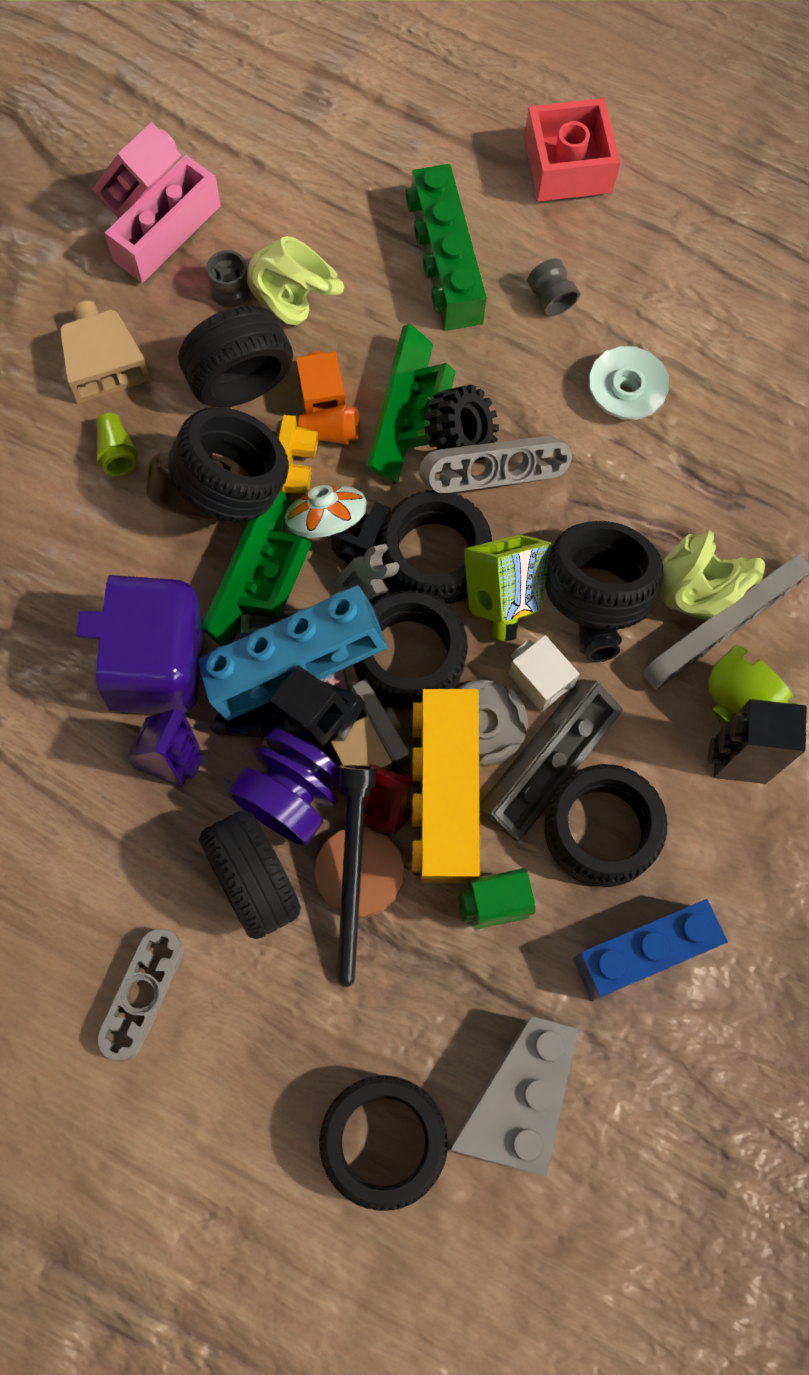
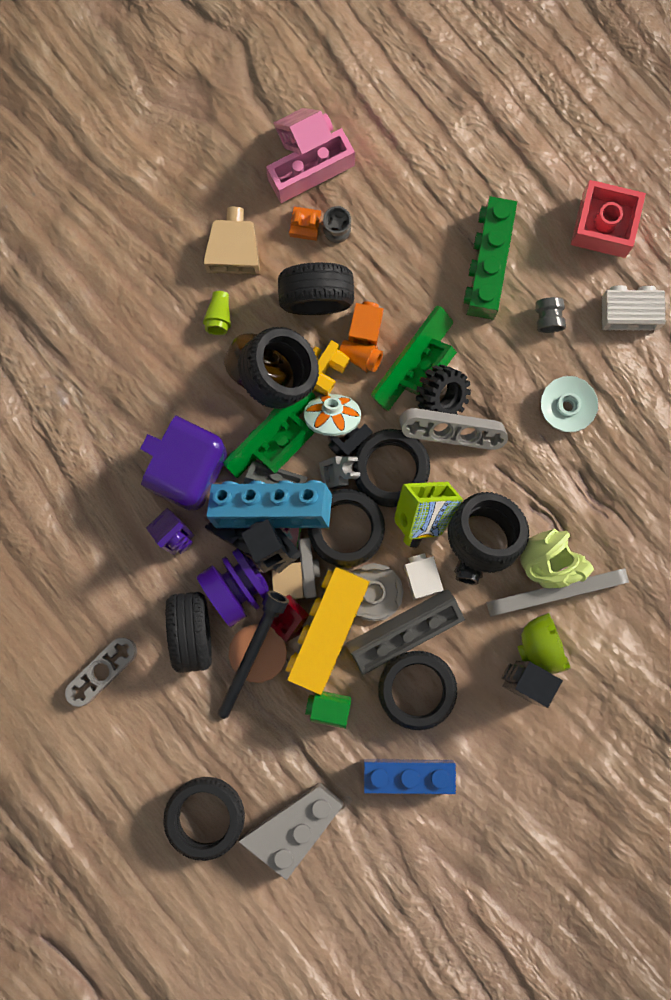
camera: 30 degrees right, 10 degrees up
(185, 295) = (305, 223): none -> orange tile
(284, 276) = (371, 242): yellowish green helmet -> none
(653, 243) = (633, 309): none -> white brick

